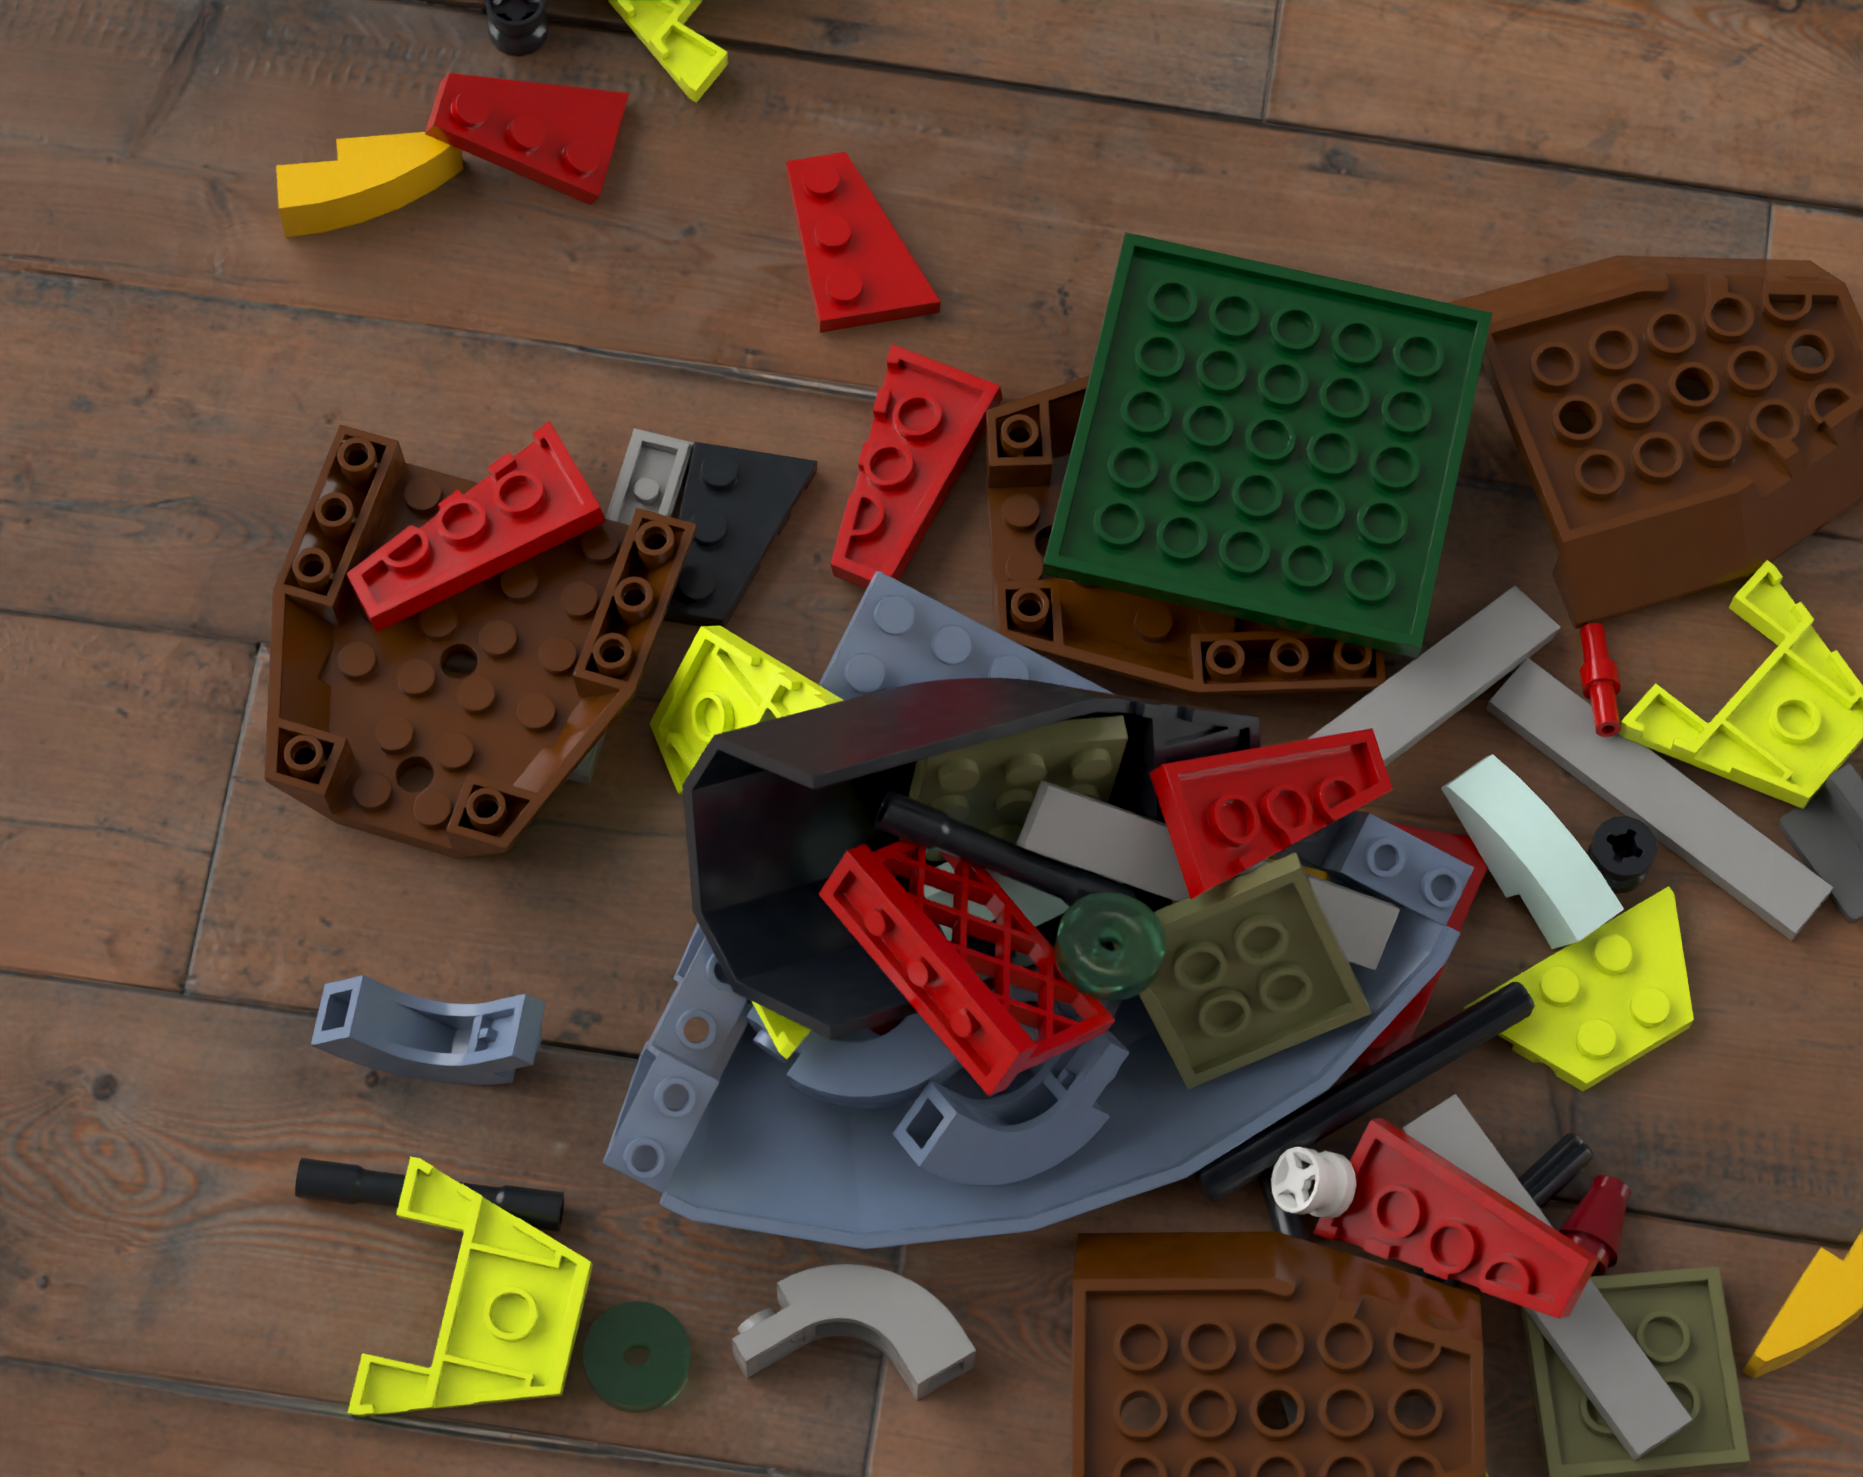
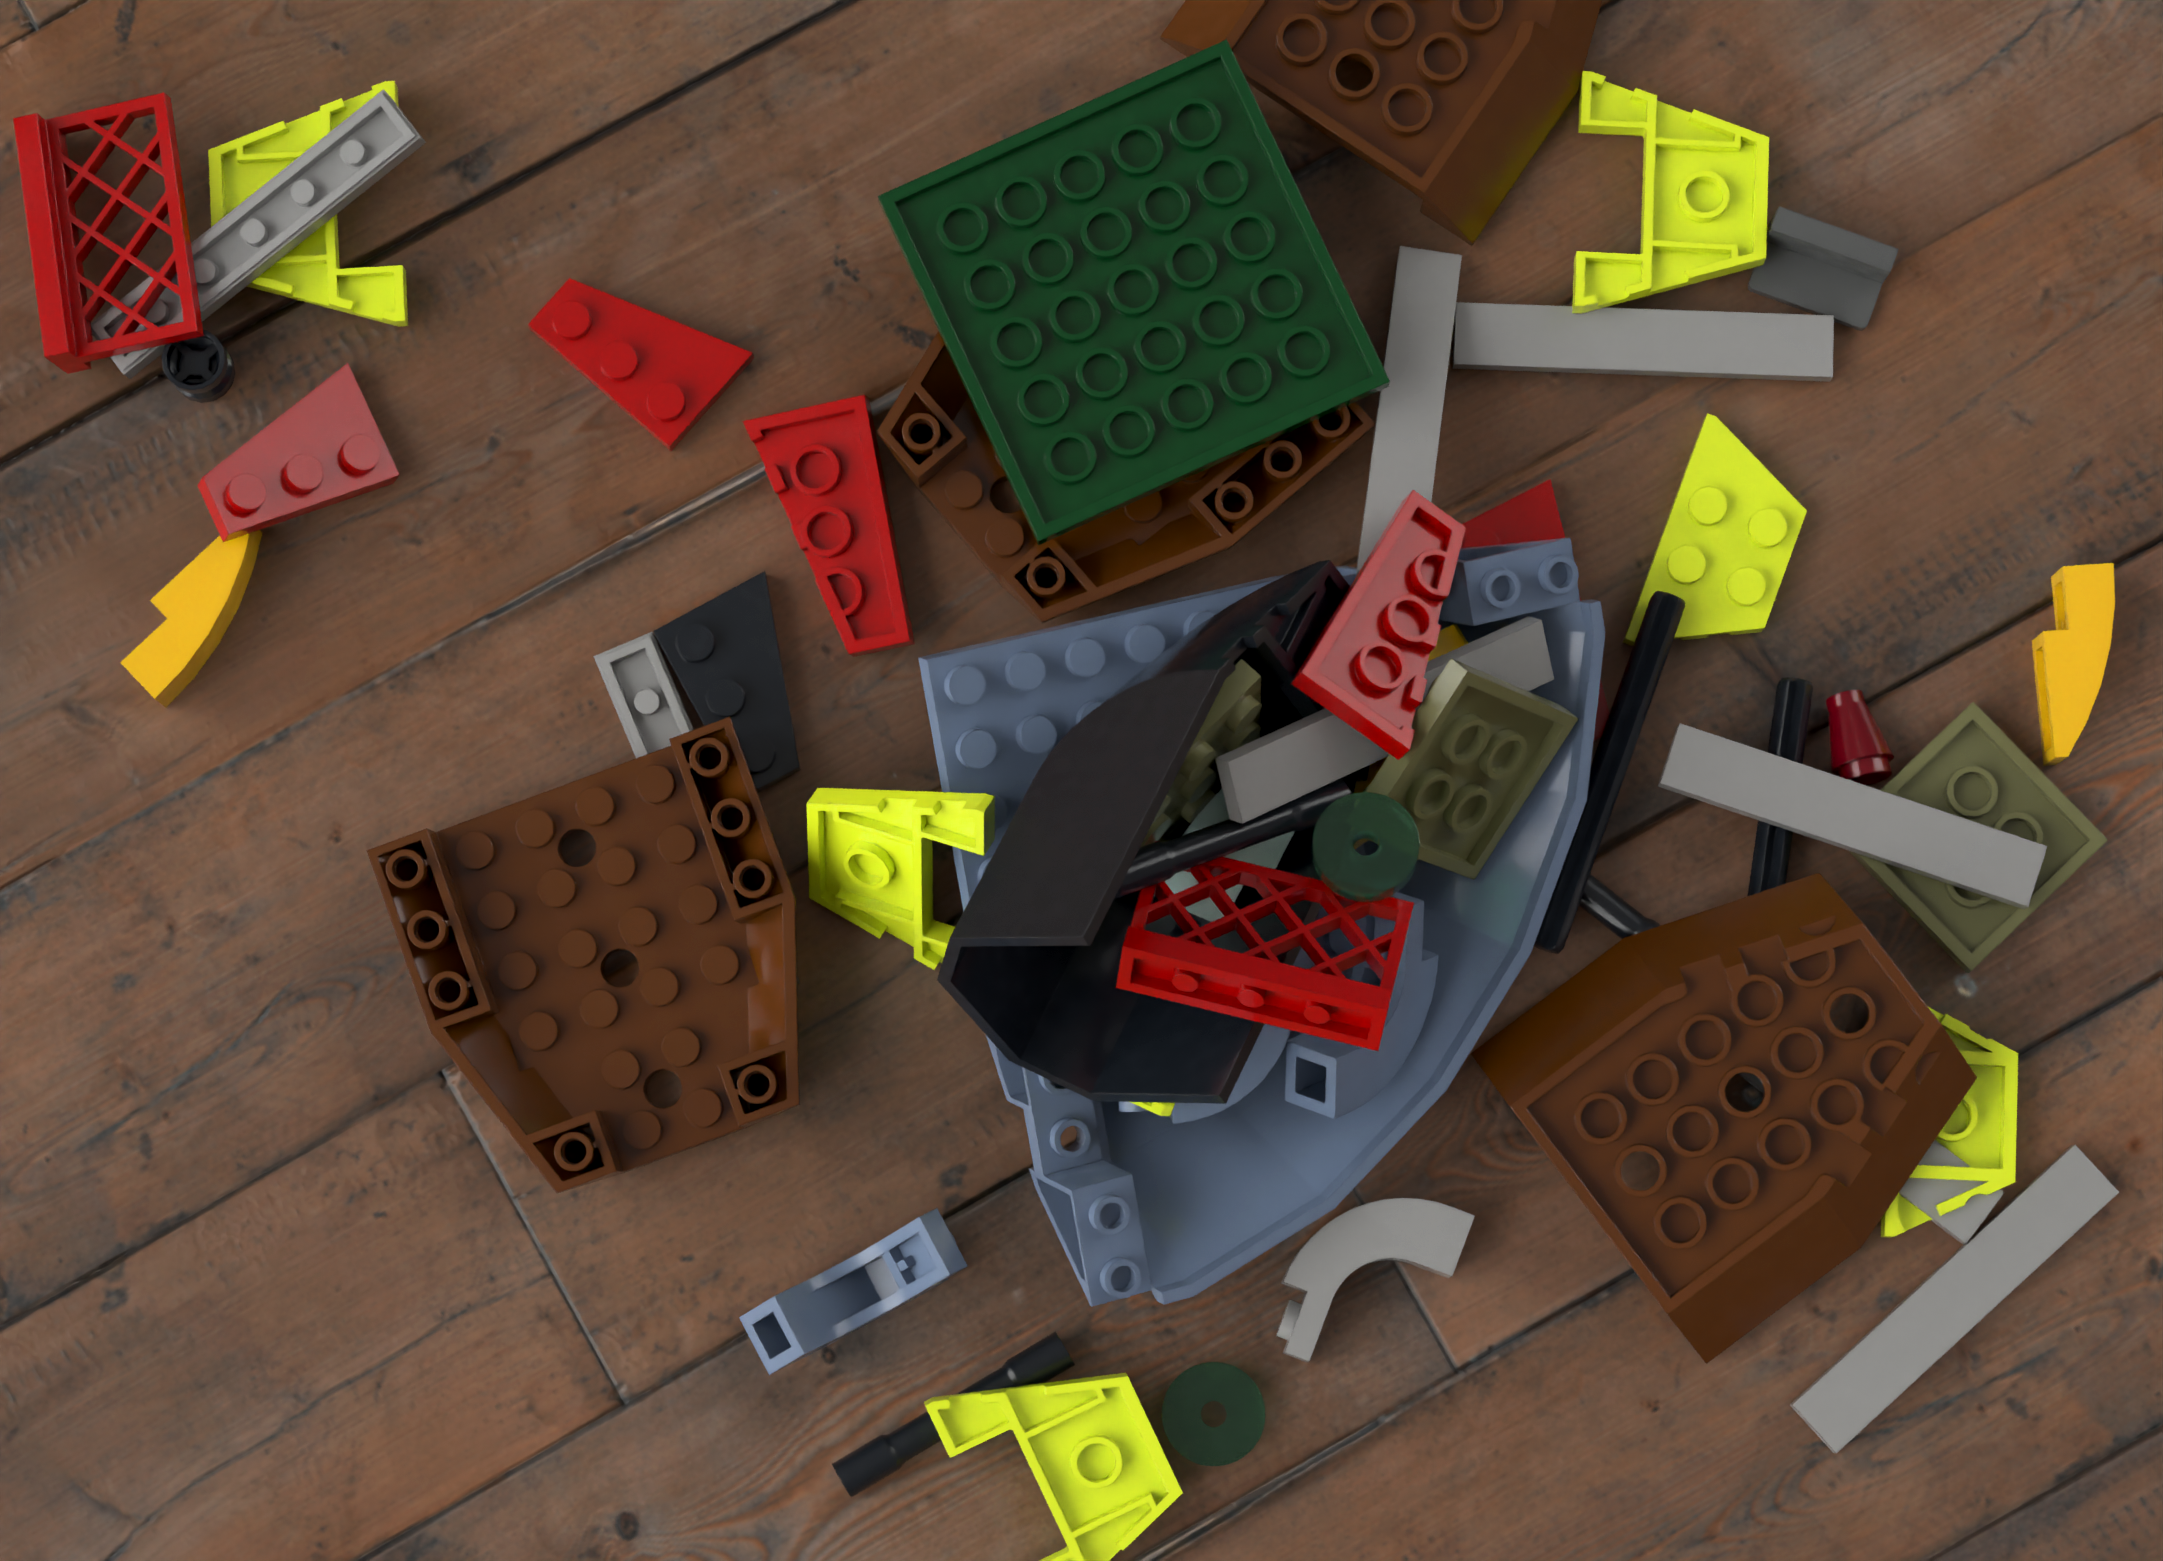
camera: 35 degrees left, 15 degrees up
(499, 523) = (562, 837): red wing -> none
(1313, 1182) = (1610, 882): white wheel -> none
(1454, 1226) = (1744, 835): red wing -> none
(1531, 852) = (1586, 472): light aqua slope -> none
(1600, 680) = (1527, 278): red bar -> none
(1616, 866) = (1651, 428): black wheel -> none

